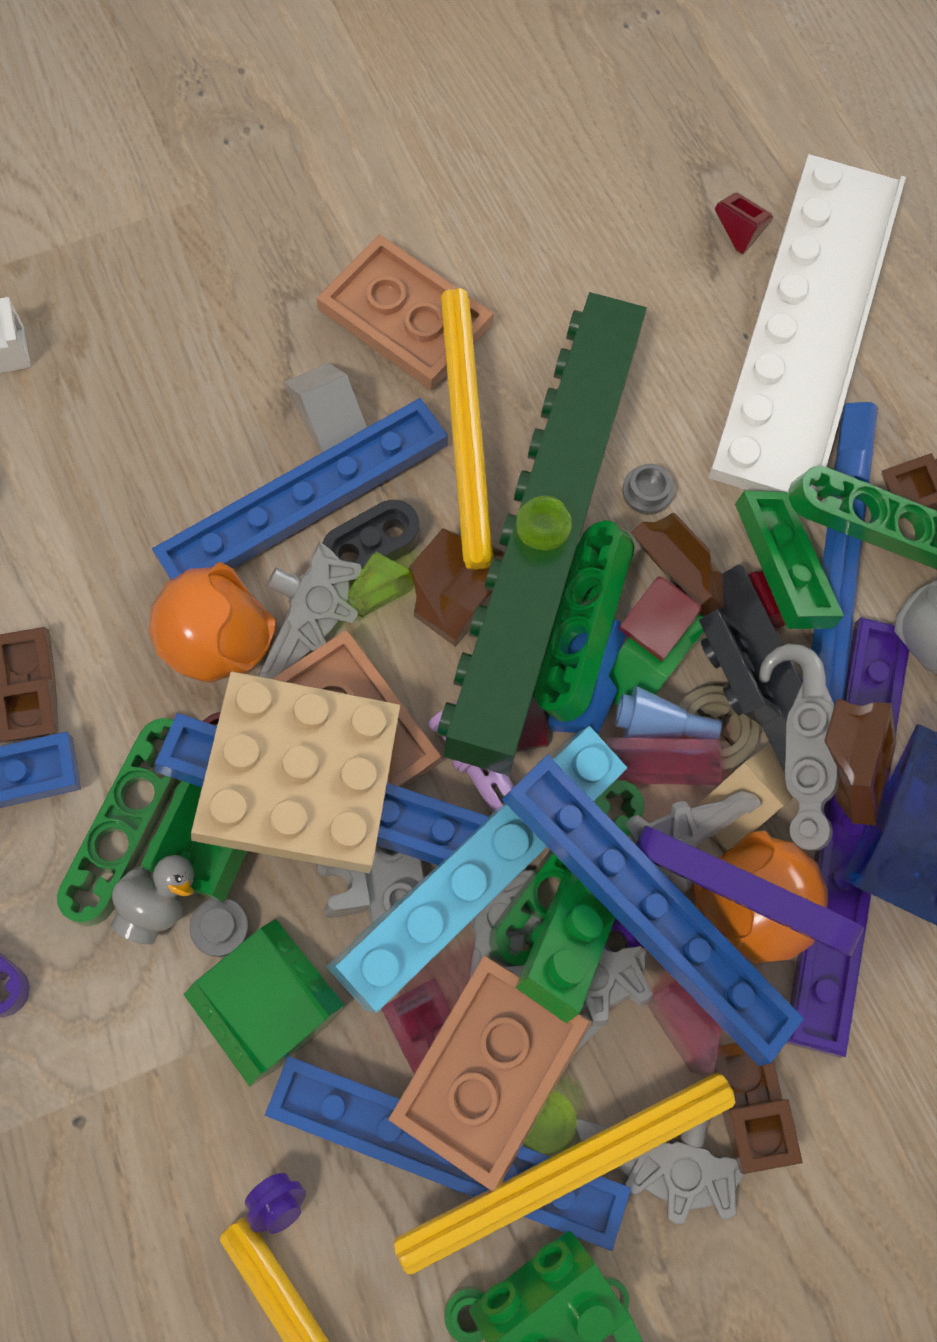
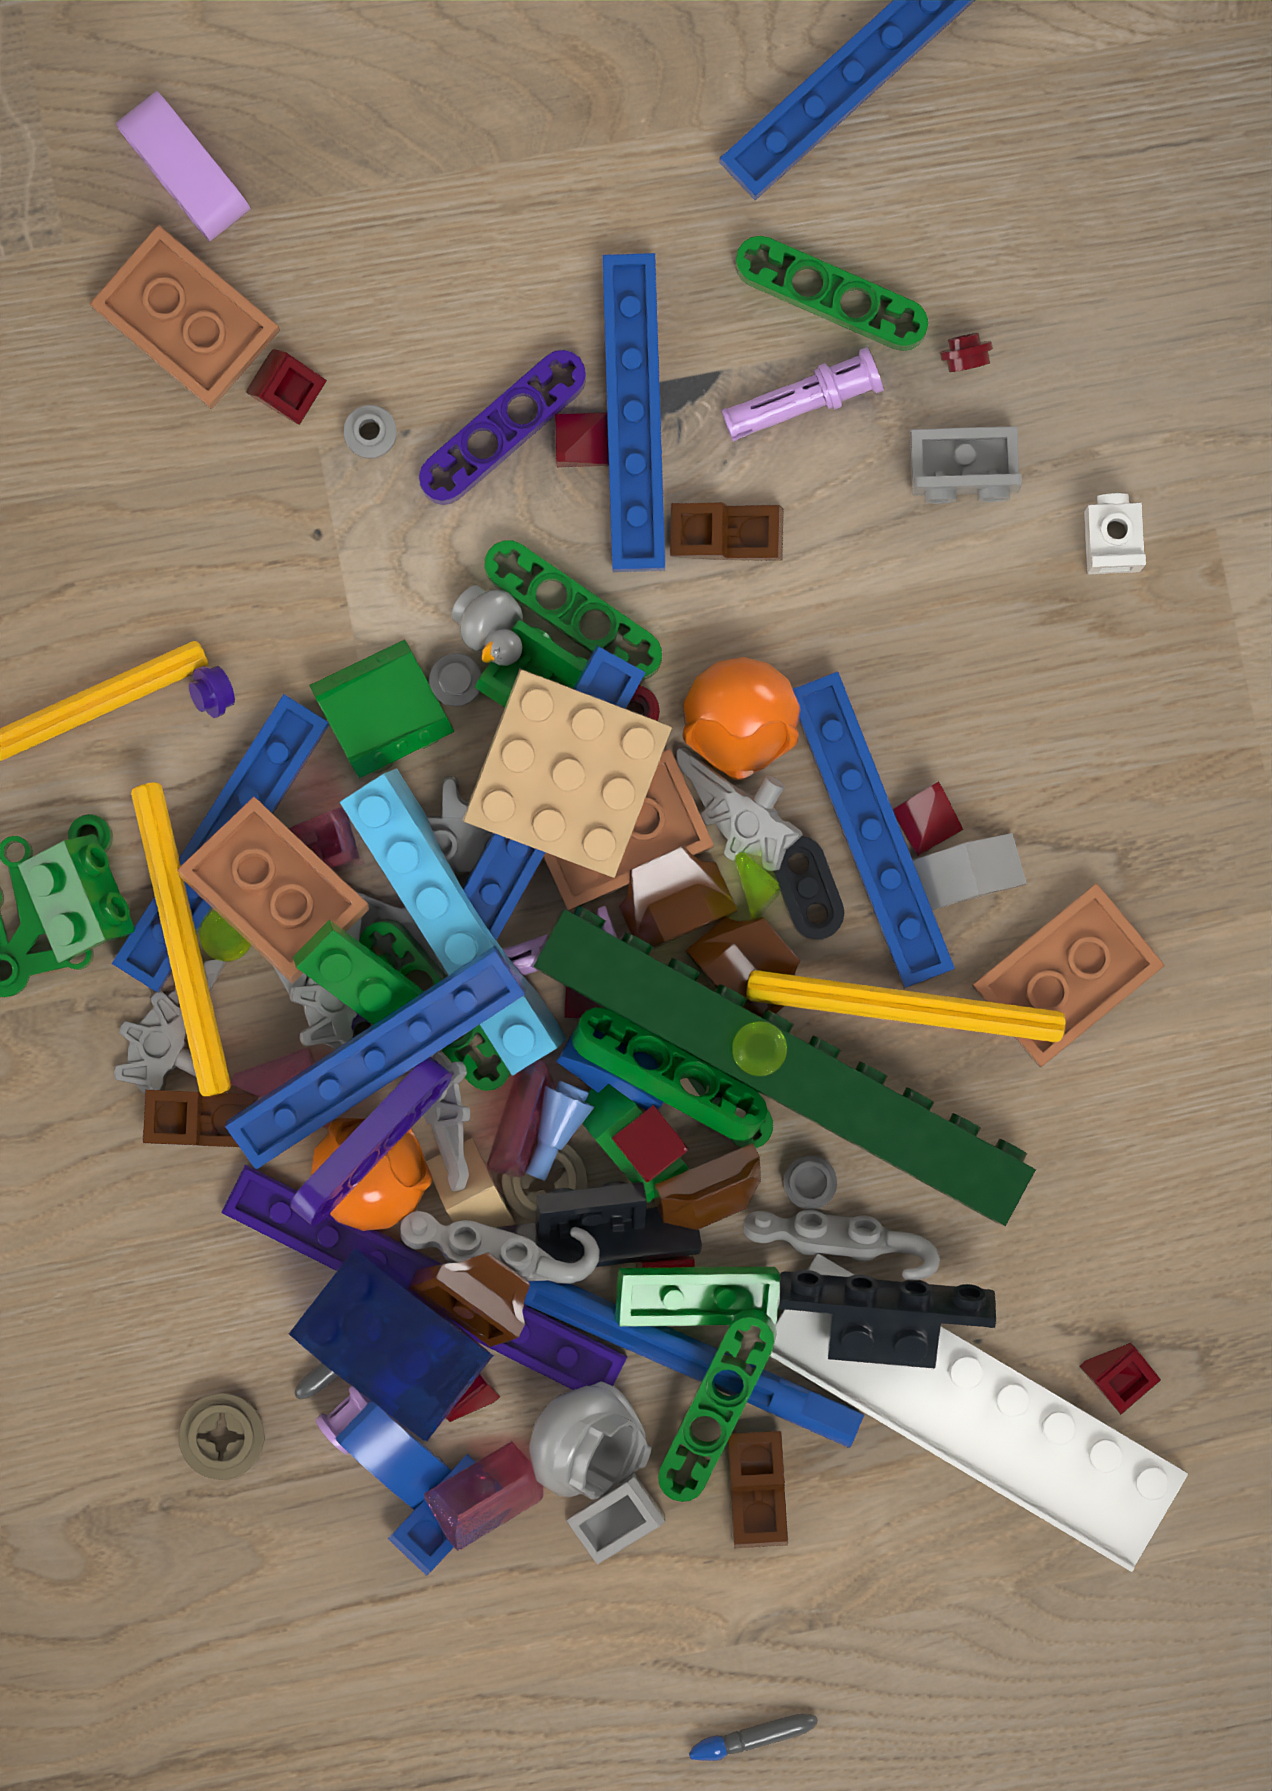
camera: 110 degrees right, 15 degrees up
(279, 449) = (927, 819): none -> dark red slope
(409, 659) = (674, 897): none -> reddish brown slope
(692, 450) = (856, 1237): none -> light grey piece
(757, 389) = (886, 1318): none -> black bracket

